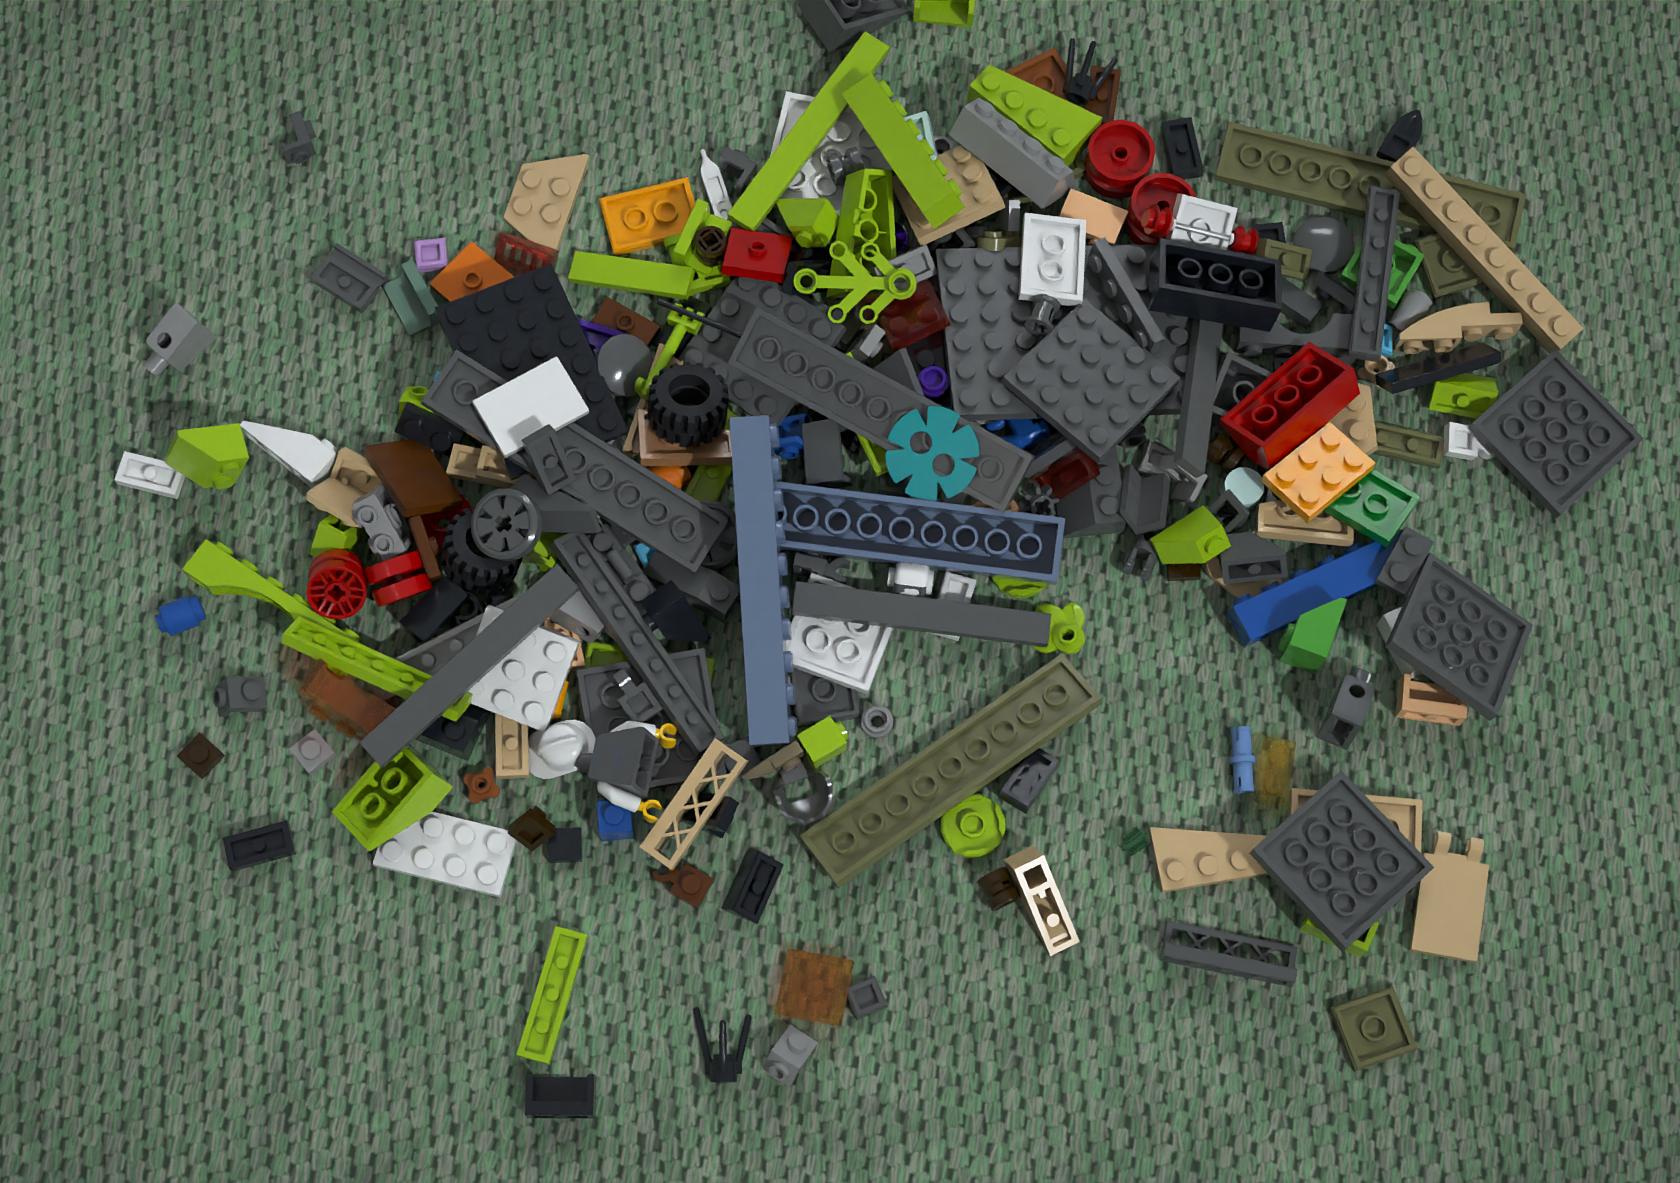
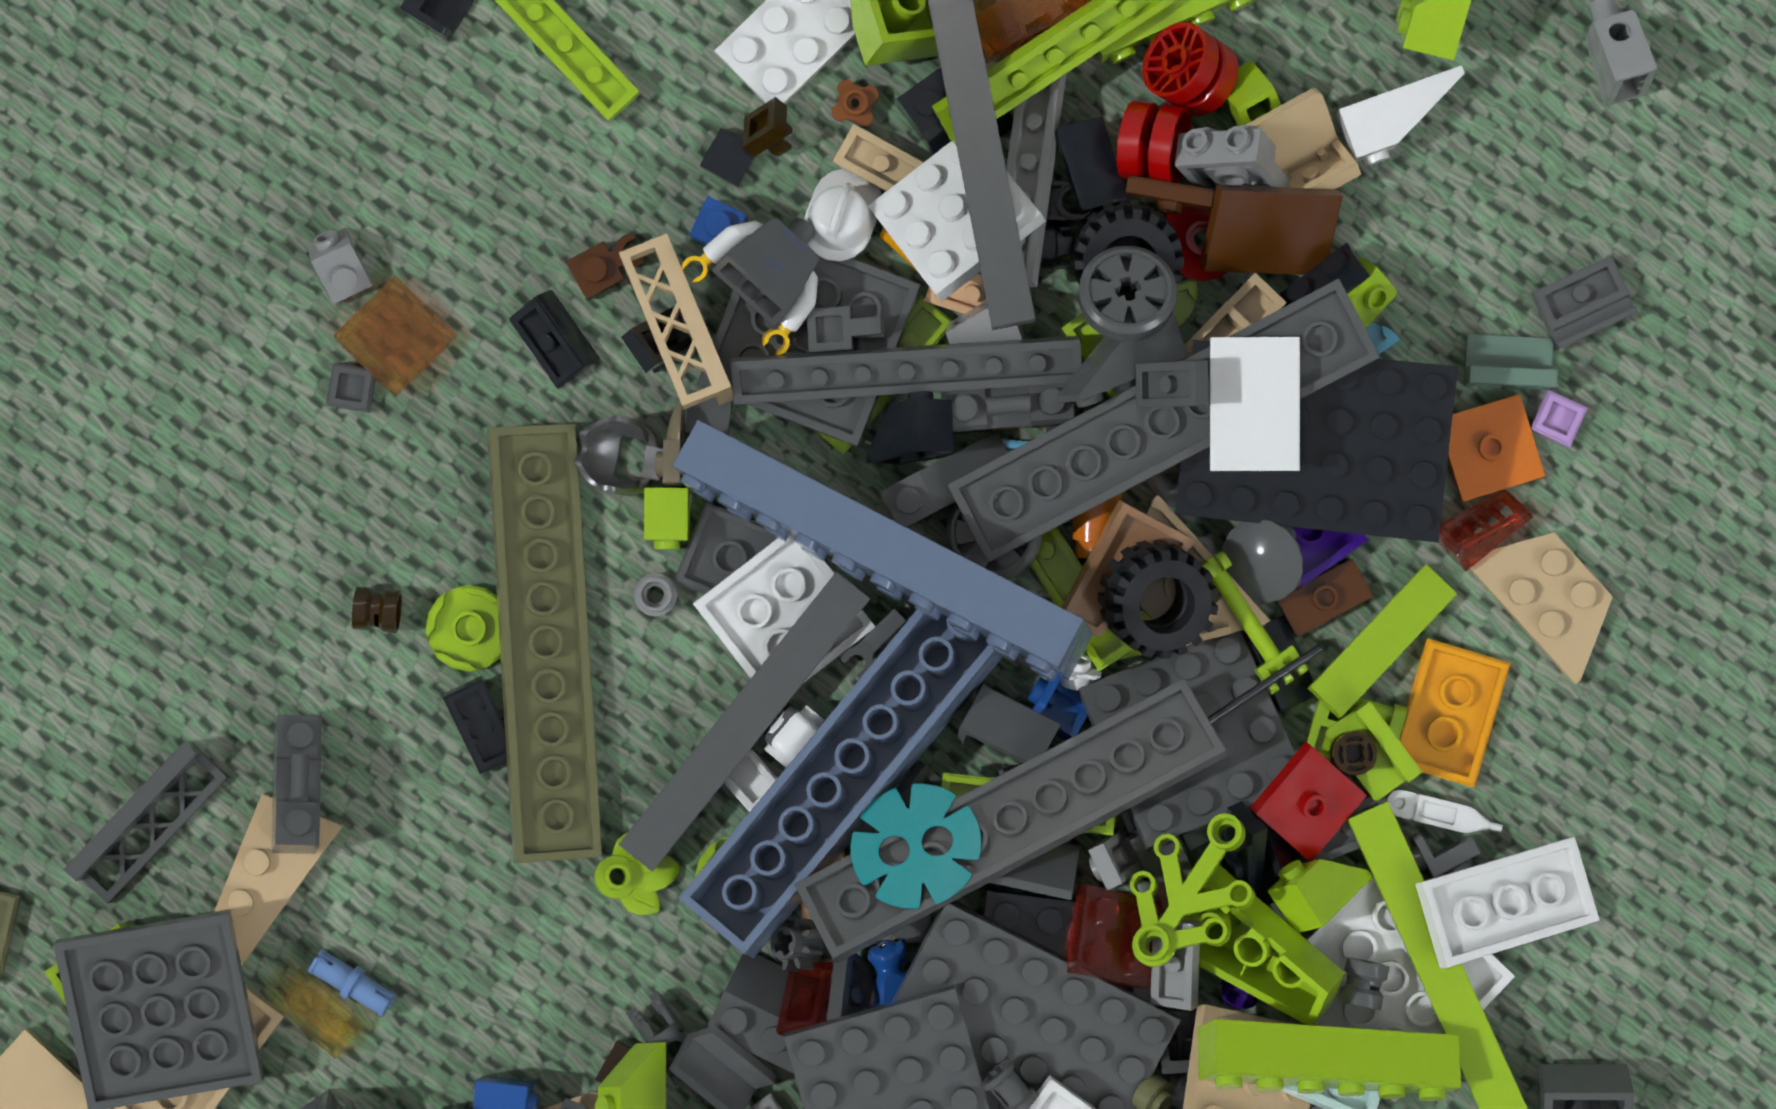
camera: 130 degrees right, 15 degrees up
(722, 1067) = (370, 183): black plant -> none
(745, 116) = (1507, 902): none -> white plate
(933, 381) = (1011, 908): dark purple plate -> none
(1041, 899) = (336, 650): tan slope -> none
(1135, 840) = (336, 798): clear green plate -> none
(1143, 866) = (296, 784): none -> dark grey piece

